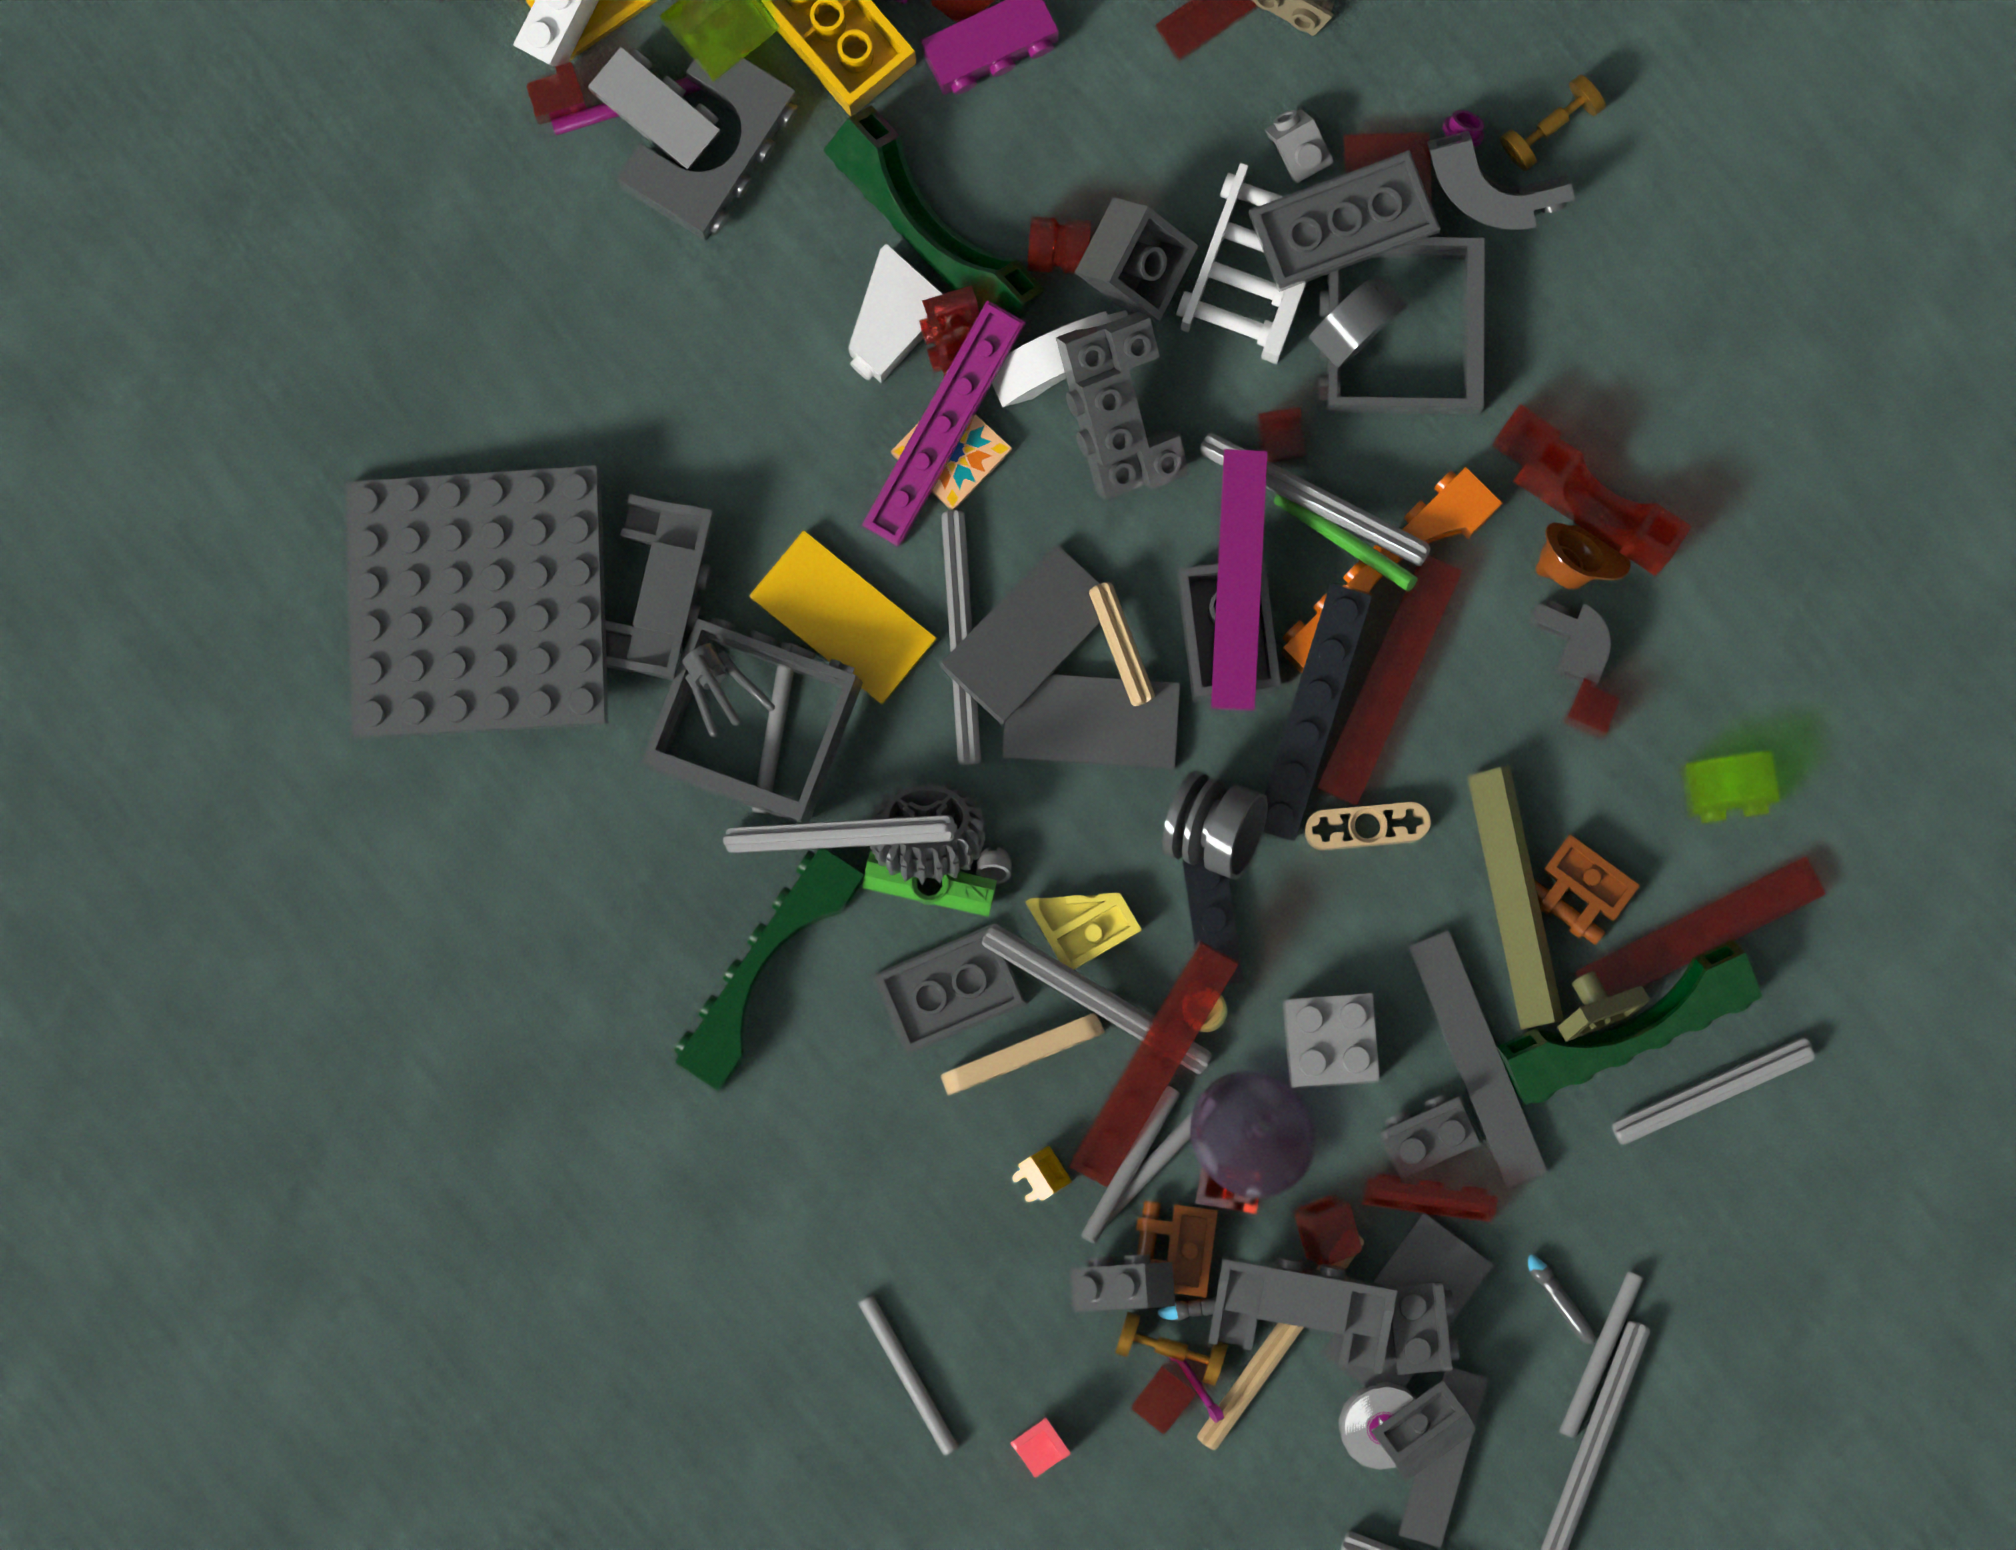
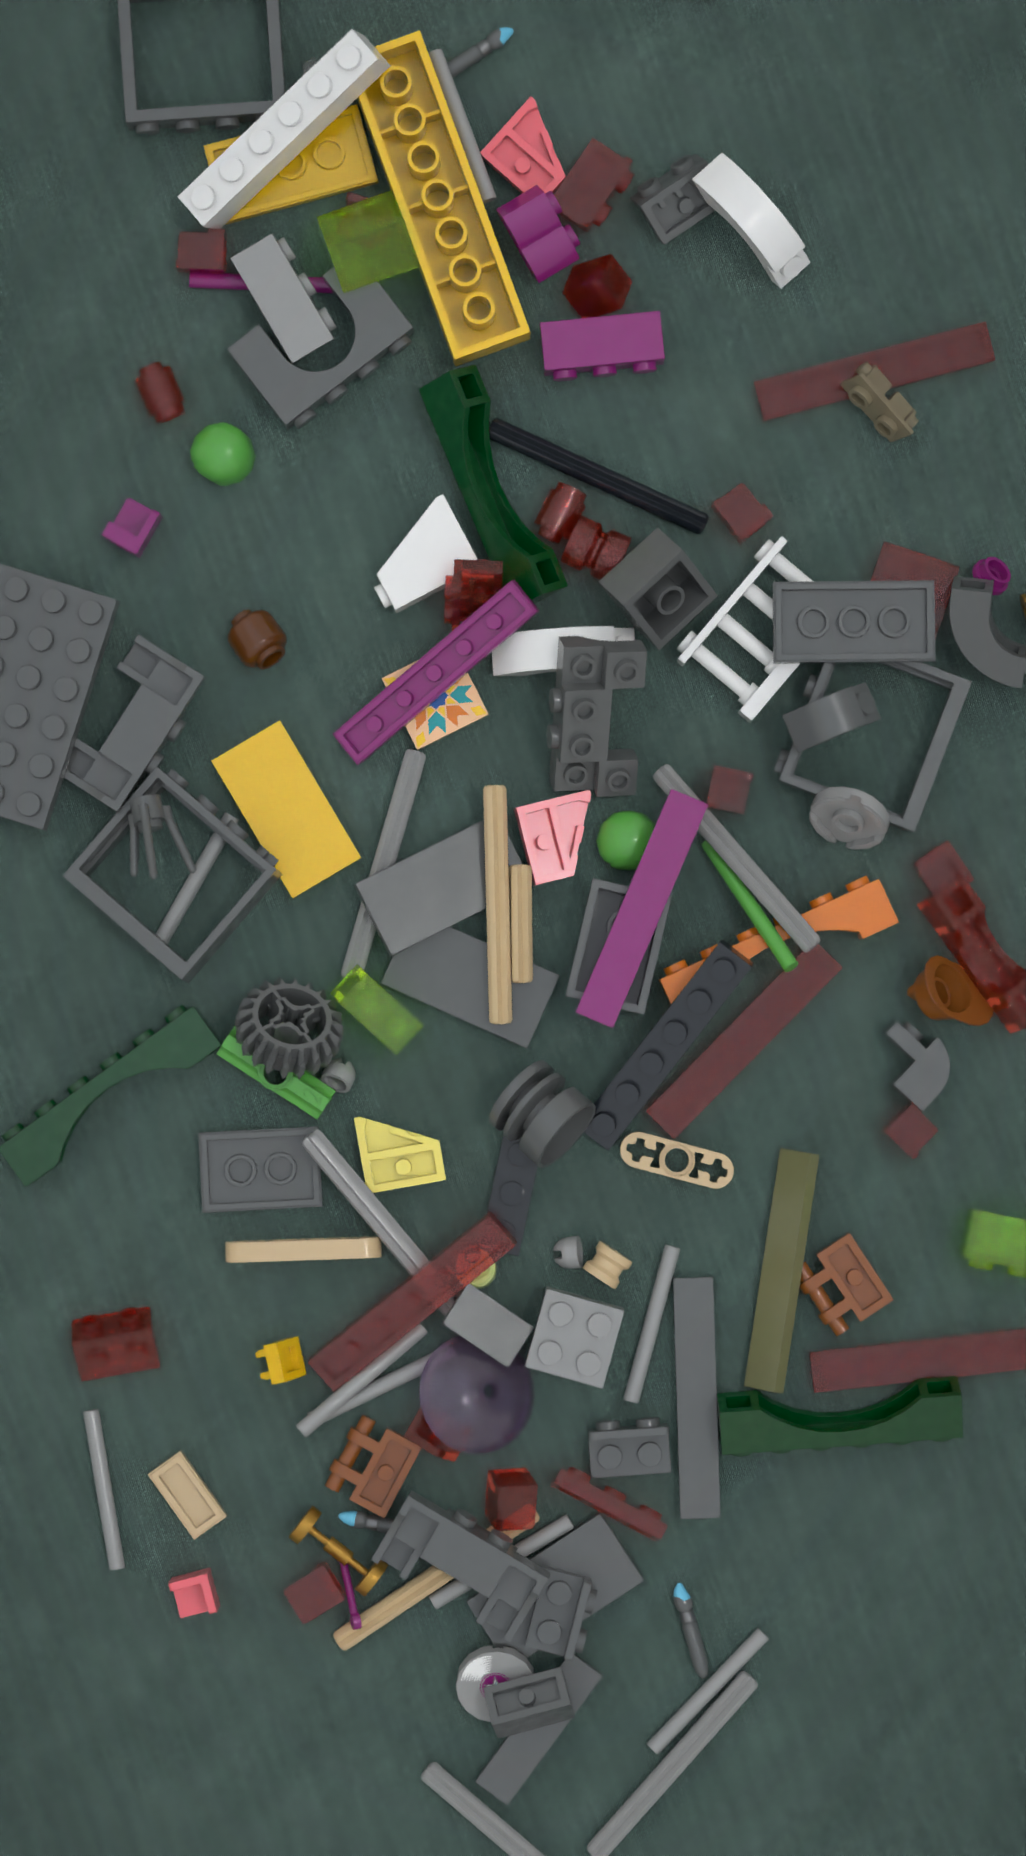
camera: 20 degrees right, 5 degrees up
(564, 248) = (160, 392): none -> clear red brick
(585, 392) = (133, 527): none -> magenta panel
(649, 287) = (222, 453): none -> bright green hair
(751, 457) = (257, 639): none -> reddish brown head
(840, 834) = (212, 1004): light grey axle -> none
(865, 1221) = (115, 1343): none -> clear red bracket
(995, 1349) = (187, 1494): none -> tan tile
(1008, 782) = (376, 1009): none -> clear neon green brick
(1010, 222) = (560, 513): none -> clear red brick
(1034, 173) = (598, 476): none -> black axle
(1091, 632) = (497, 904): none -> tan axle
(1120, 545) = (553, 835): none -> wing
(1124, 1286) = (314, 1484): dark grey brick -> none
(1191, 158) = (741, 512): none -> clear red panel
(1194, 523) = (624, 839): none -> bright green hair
(1238, 1058) = (487, 1325): none -> panel
(1295, 957) = (571, 1252): none -> light grey hinge
(1299, 144) = (841, 535): light grey bracket -> none
(1337, 956) = (607, 1264): none -> tan wheel
(1364, 1272) = (524, 1547): none -> light grey bar
(1404, 1001) = (651, 1324): none -> light grey bar
(1413, 417) = (849, 817): none -> light grey tile
(1599, 1008) = (818, 1394): olive tile -> none
(1713, 1090) = (890, 1499): light grey axle -> none

